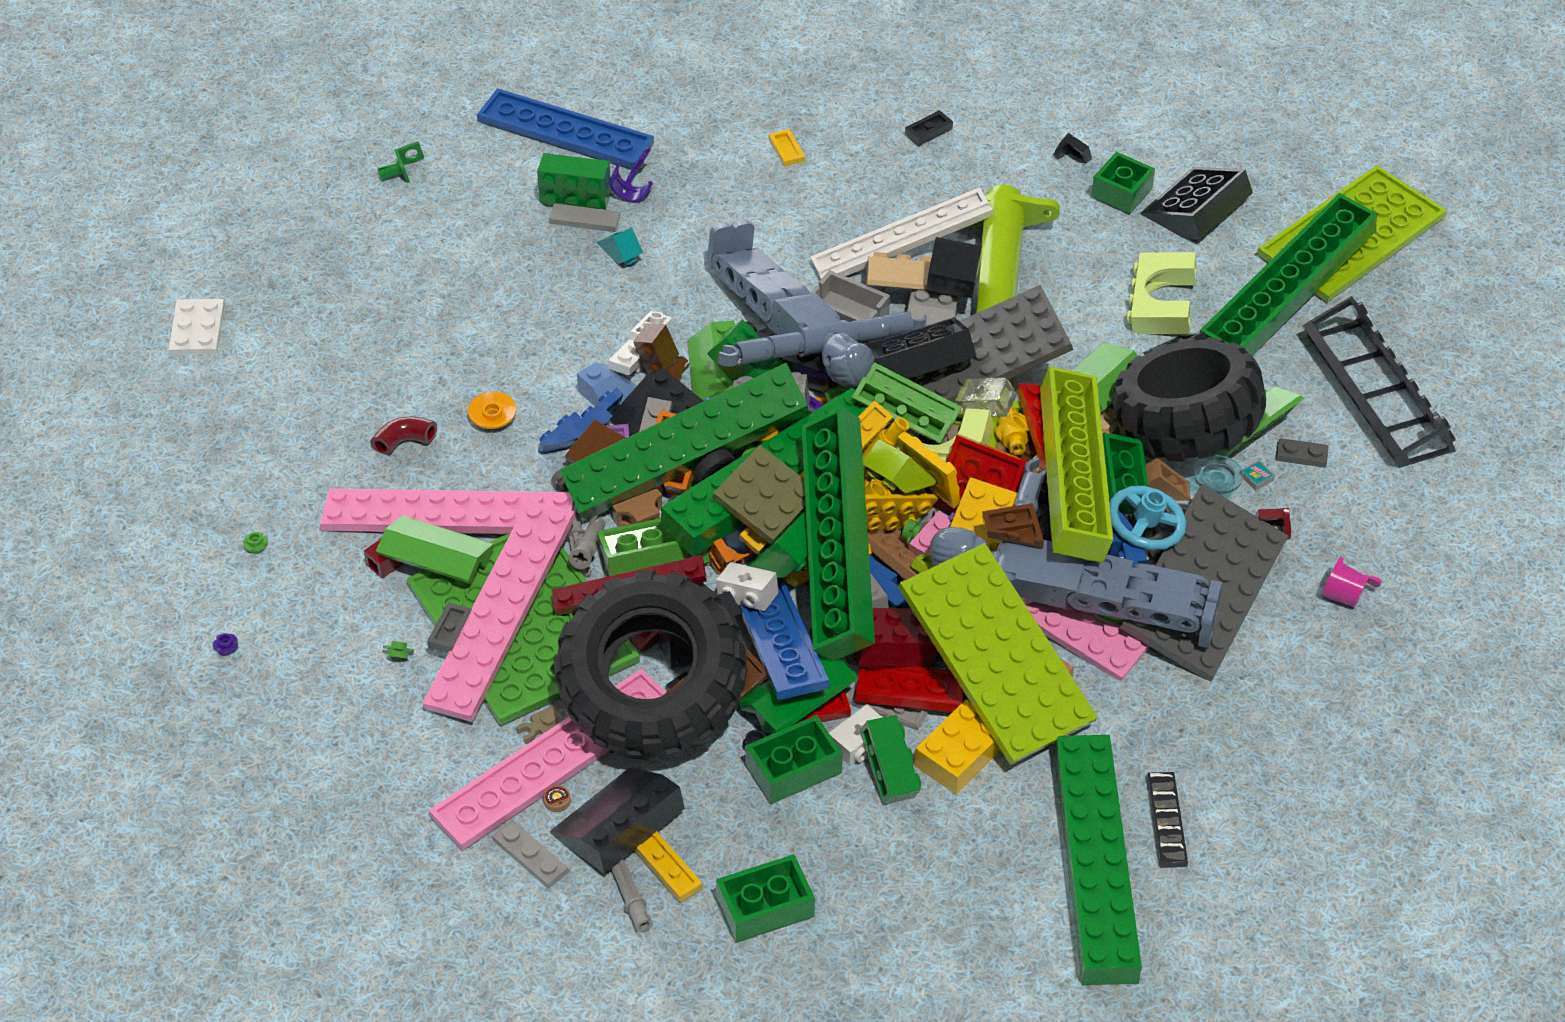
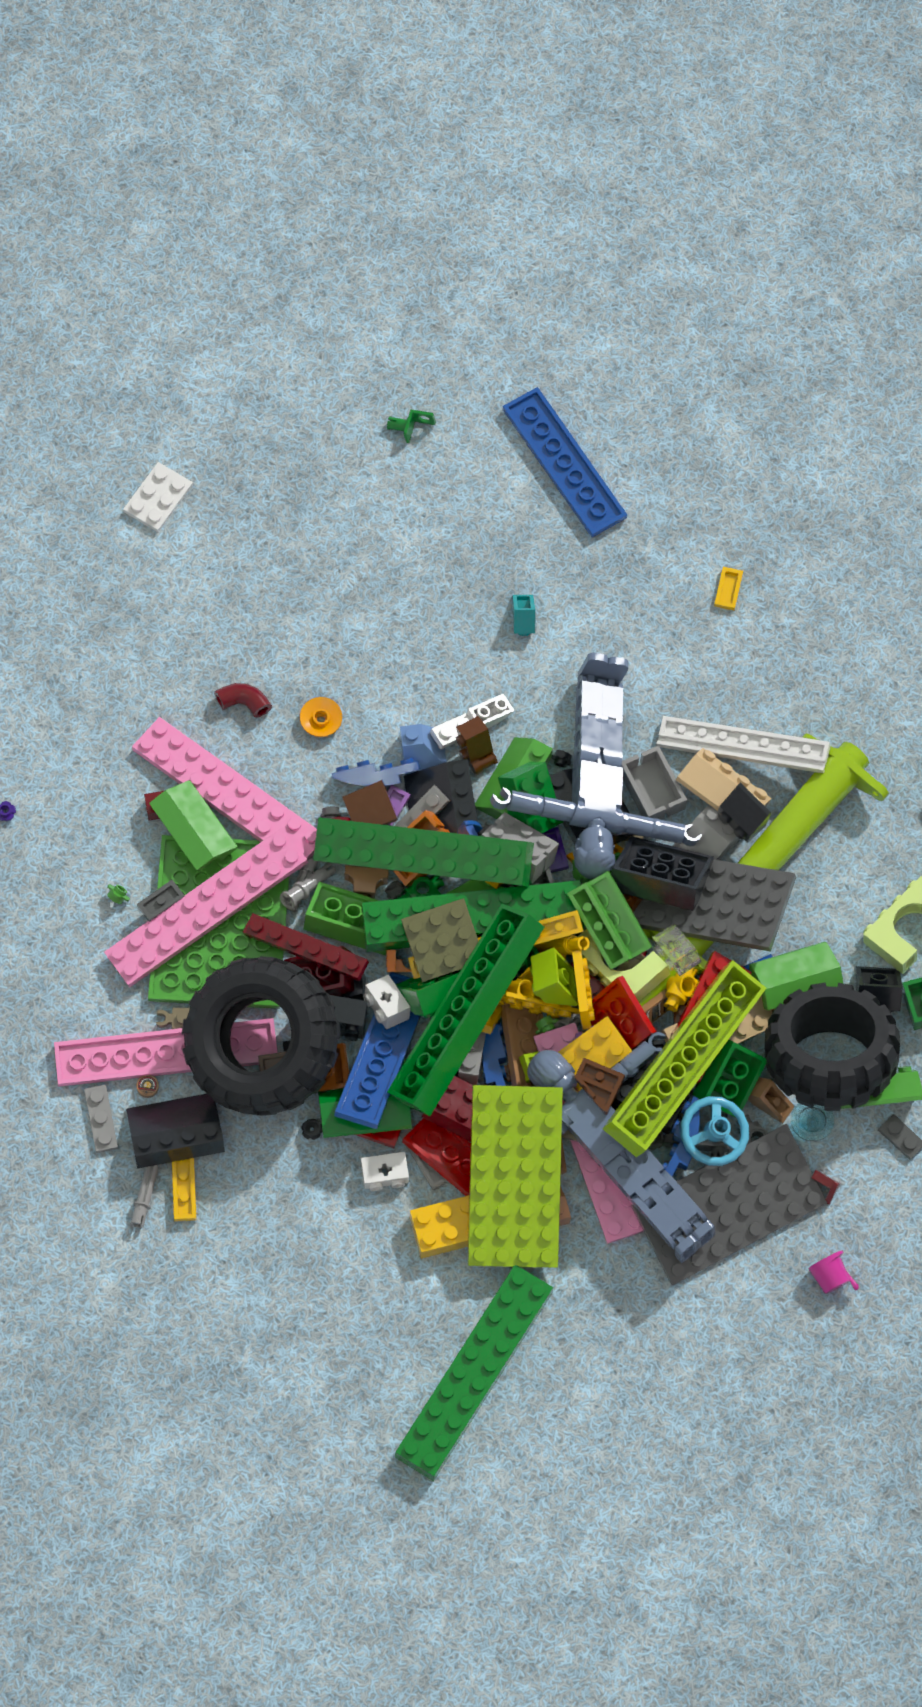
camera: 30 degrees right, 20 degrees up
(255, 542) = (78, 738): bright green plate -> none
(574, 181) = (527, 530): green brick -> none
(584, 217) = (518, 565): light grey tile -> none
(632, 193) = (569, 563): dark purple helmet -> none
(712, 464) = (433, 885): black tyre -> none
(765, 897) = (227, 1258): green brick -> none
(793, 759) = (324, 1162): green brick -> none
(890, 759) = (388, 1207): green brick -> none
(929, 127) = (857, 638): black plate -> none
(1167, 820) = (549, 1374): tile -> none
(1257, 475) = (850, 1135): tile -> none

